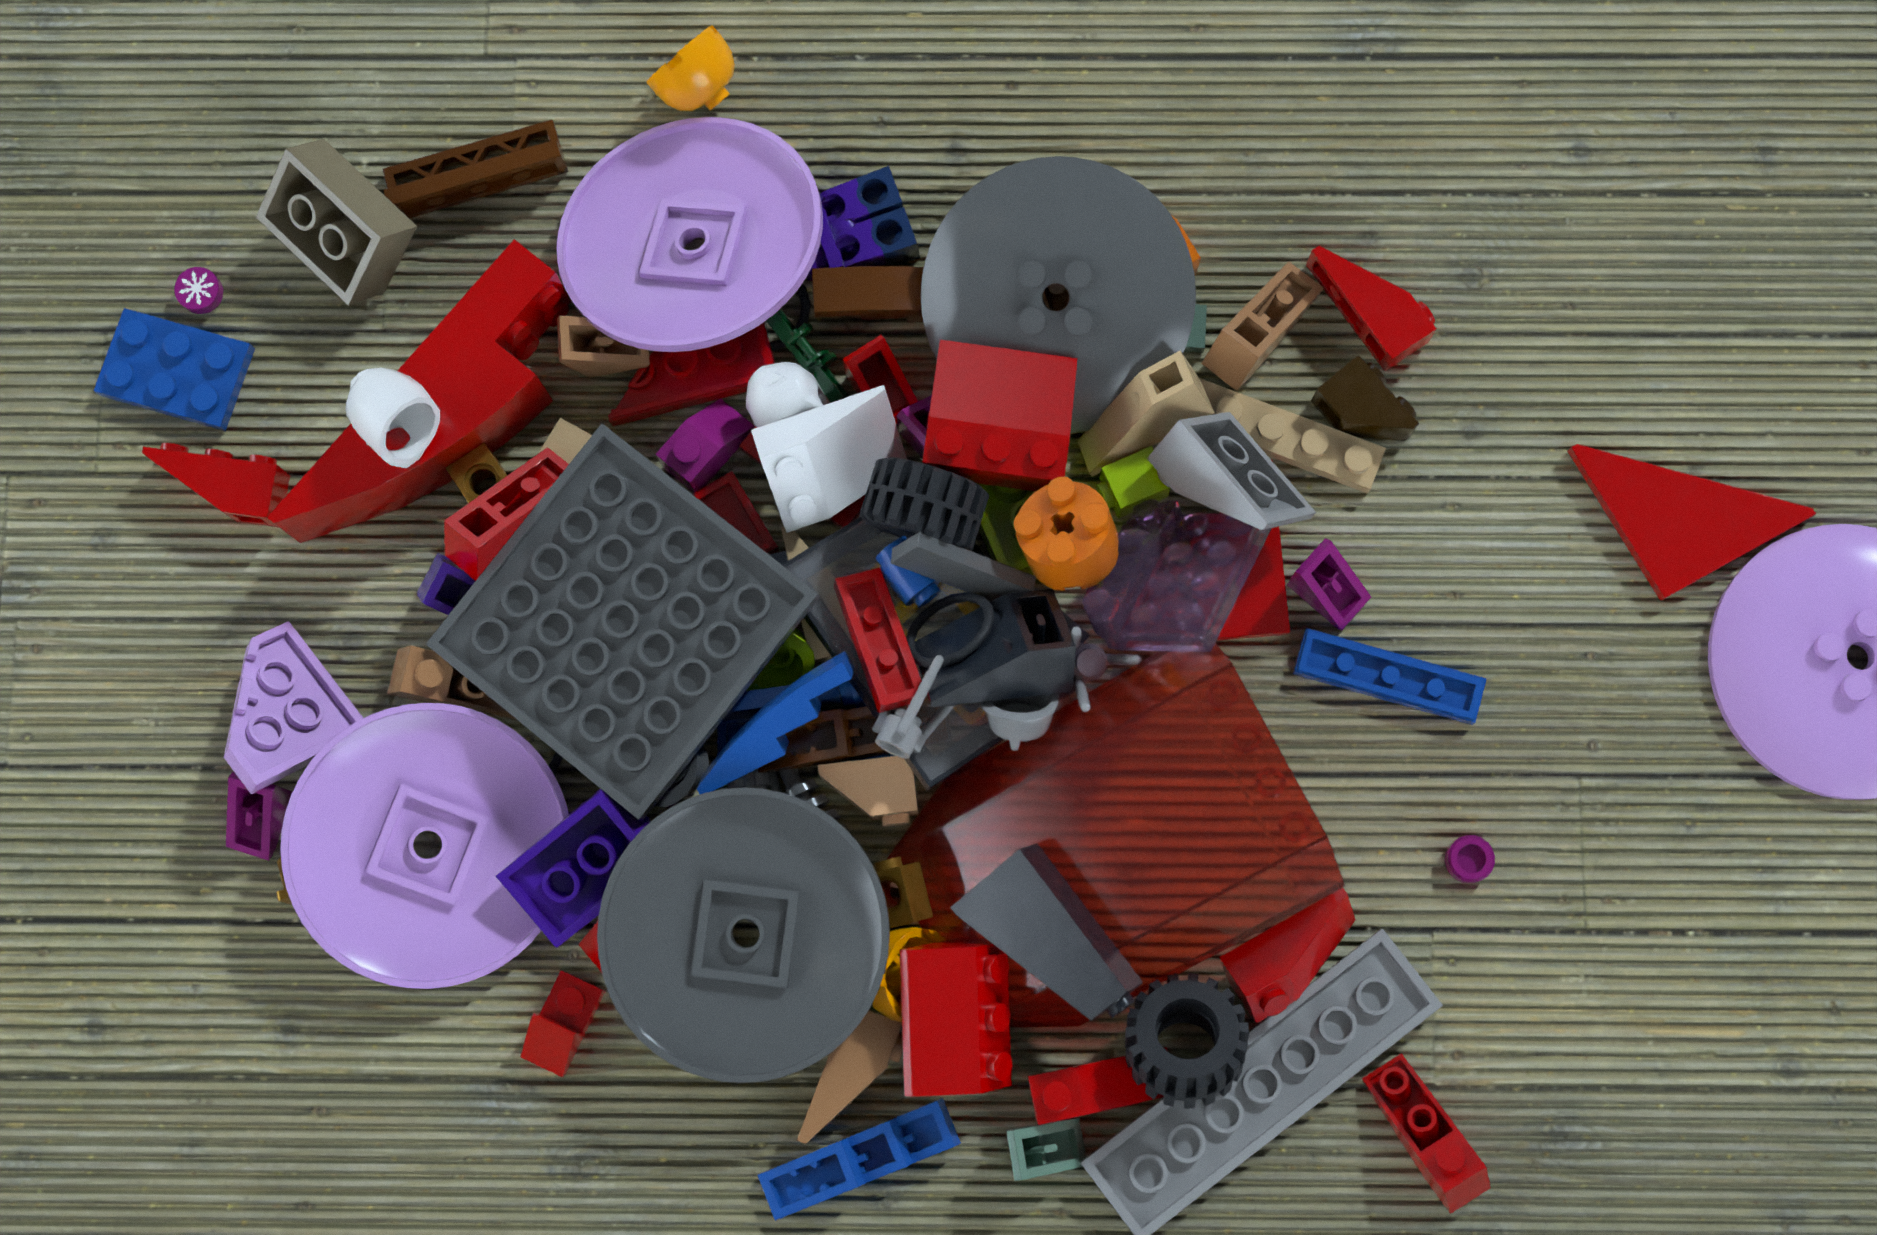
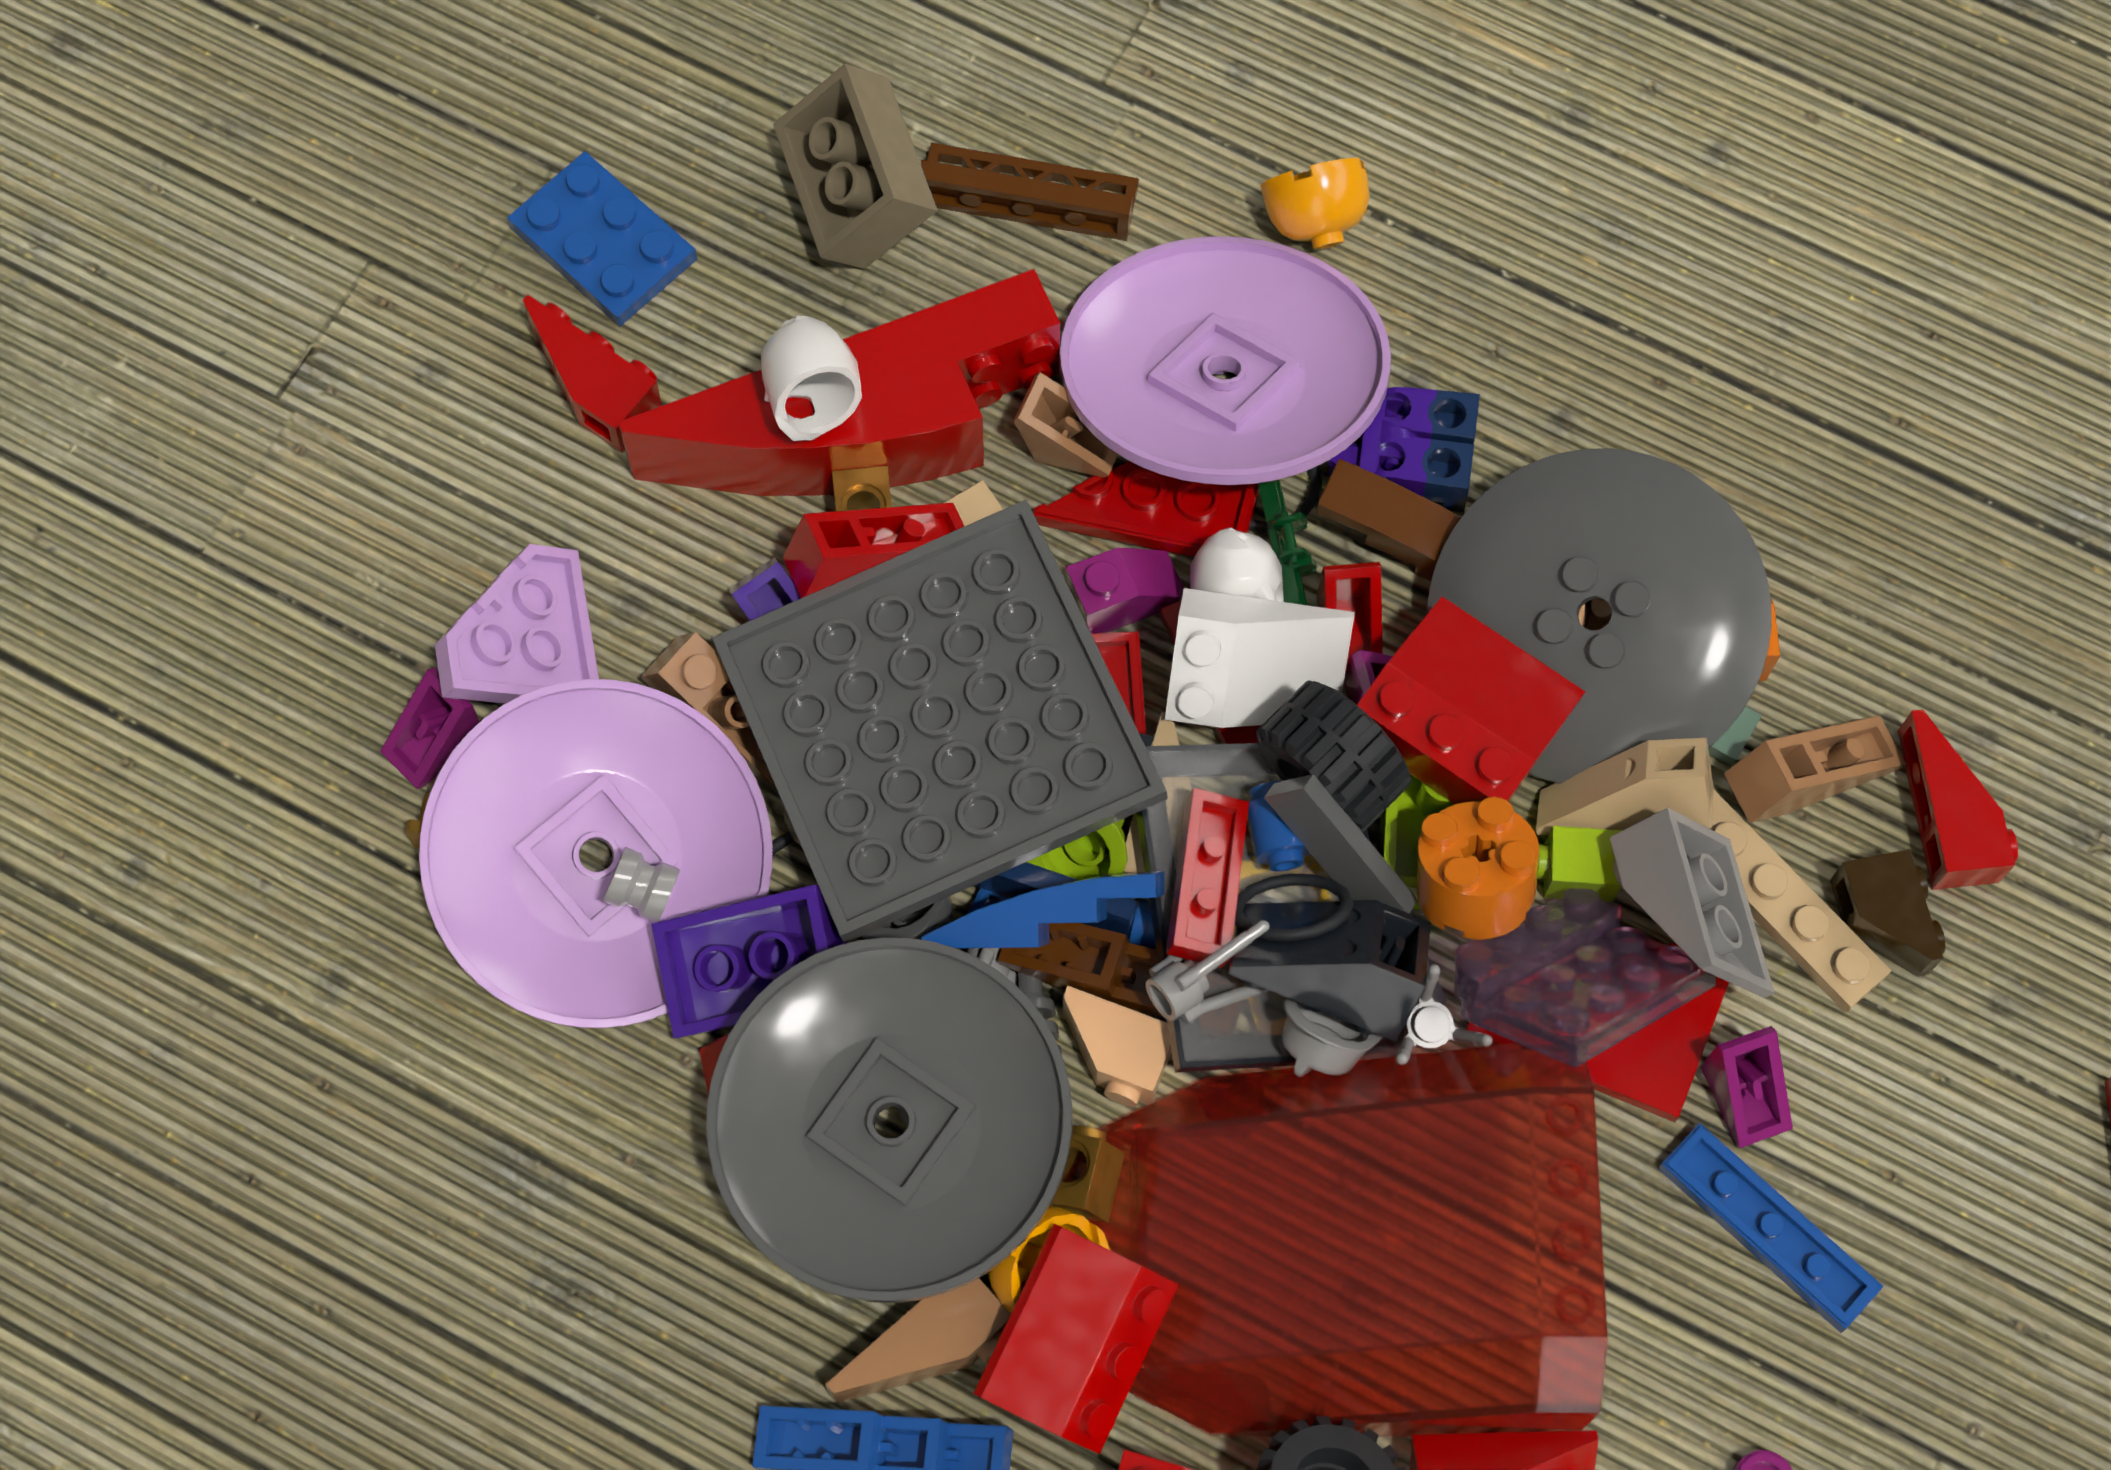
camera: 20 degrees right, 10 degrees down
(198, 290) = (671, 171): magenta tile -> none
(473, 855) = (641, 885): none -> light grey wheel
(561, 1024) = (633, 1127): red slope -> none
(1050, 932) = (1233, 1292): black slope -> none

